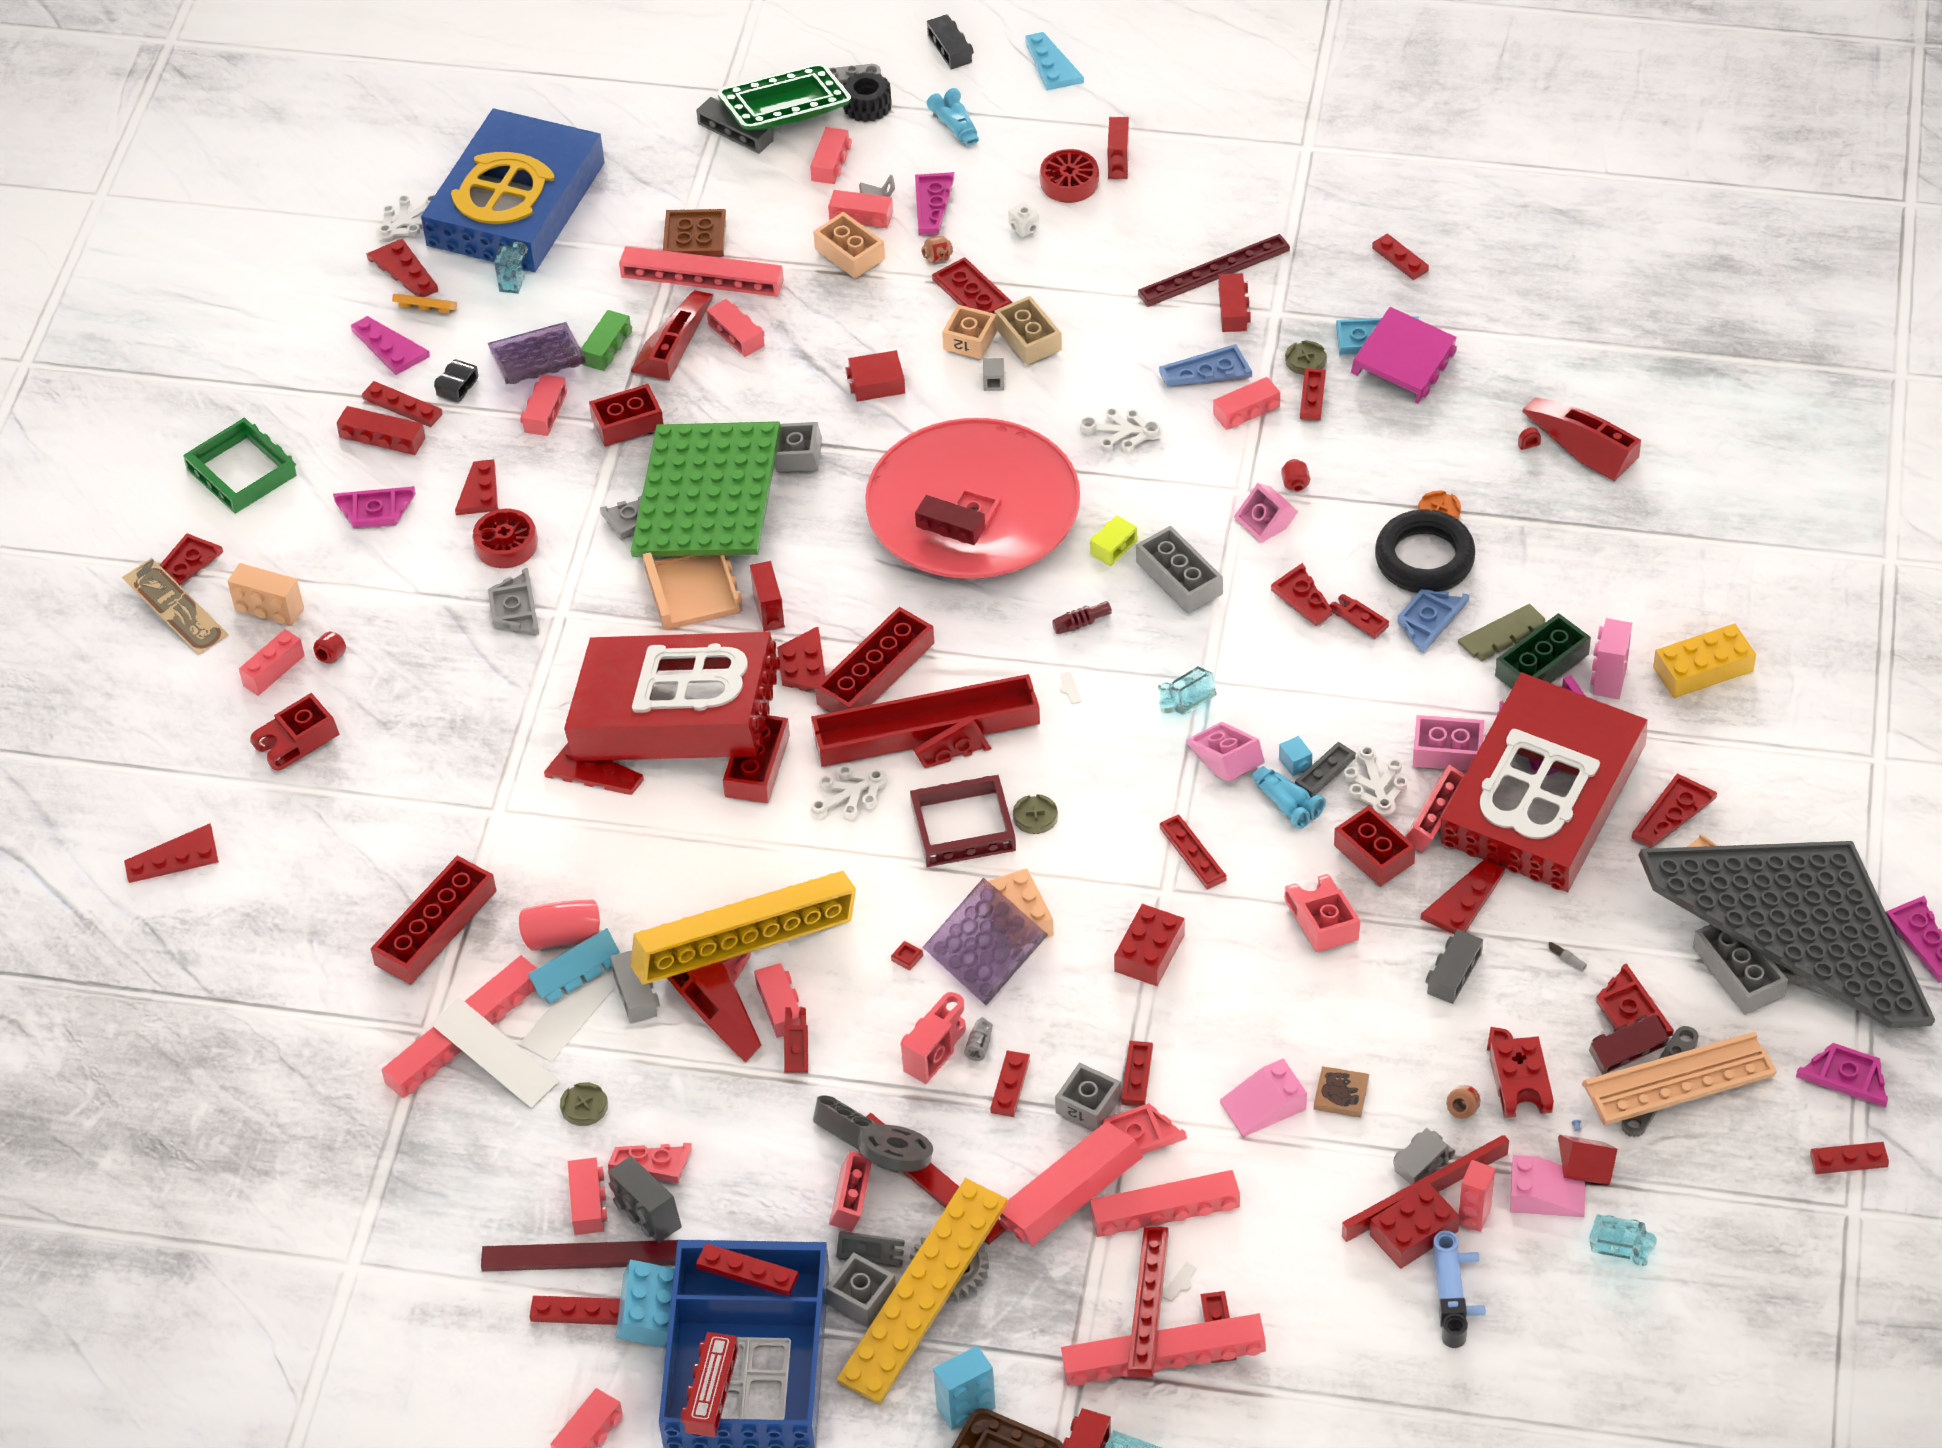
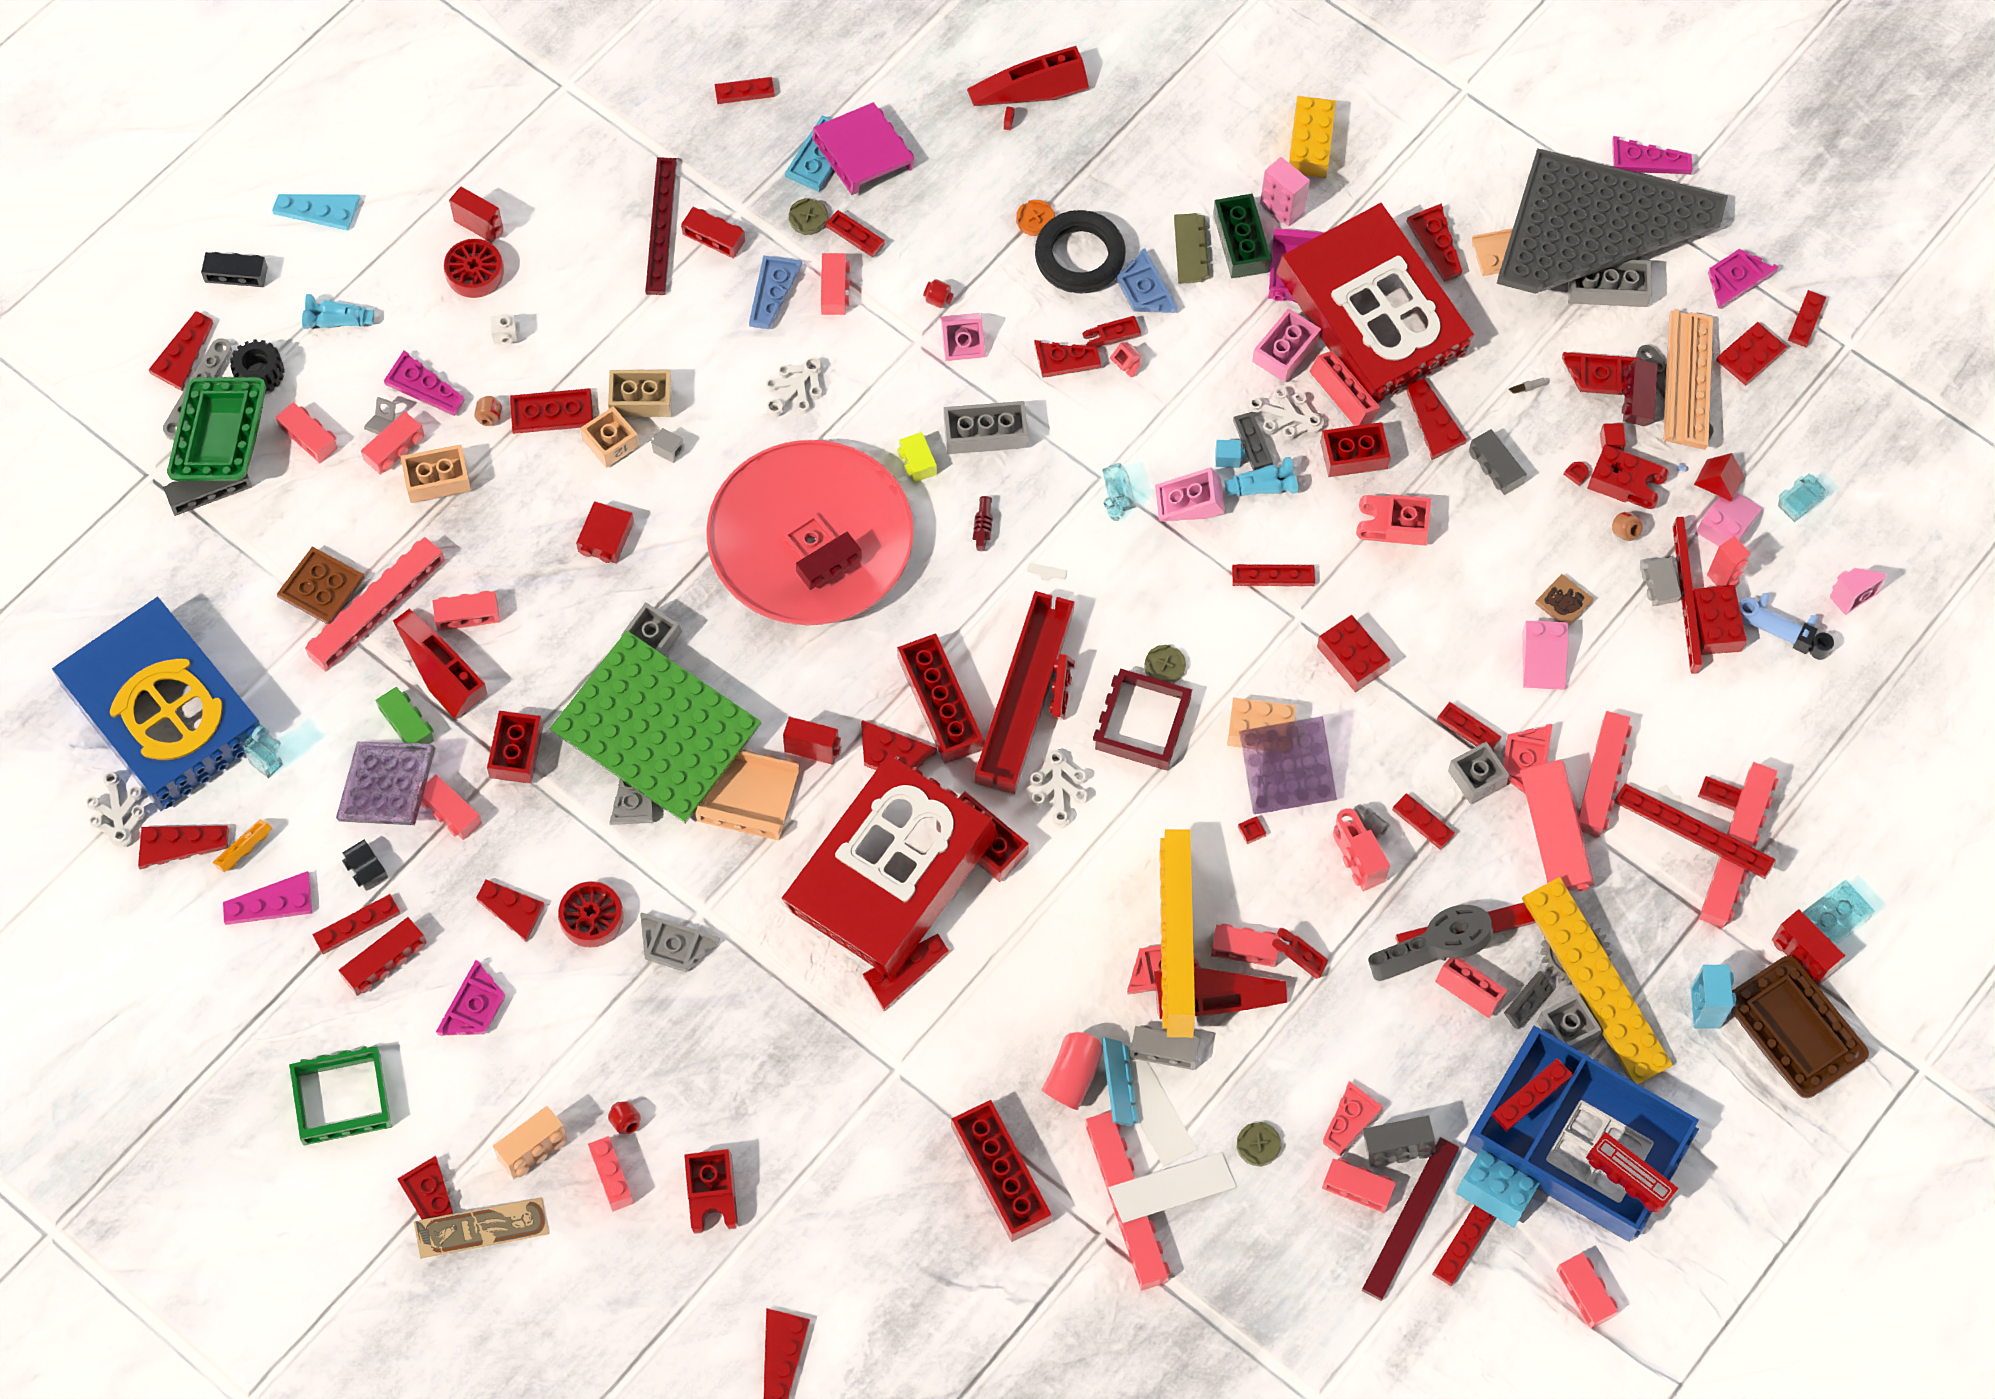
camera: 65 degrees left, 15 degrees up
(853, 52) = (180, 354): none -> red wing
(1337, 634) = (1127, 358): none -> coral piece
(1541, 1328) = (1856, 588): none -> bright pink slope
(1559, 1048) = (1613, 435): none -> red brick
(1764, 1127) = (1751, 353): none -> red plate

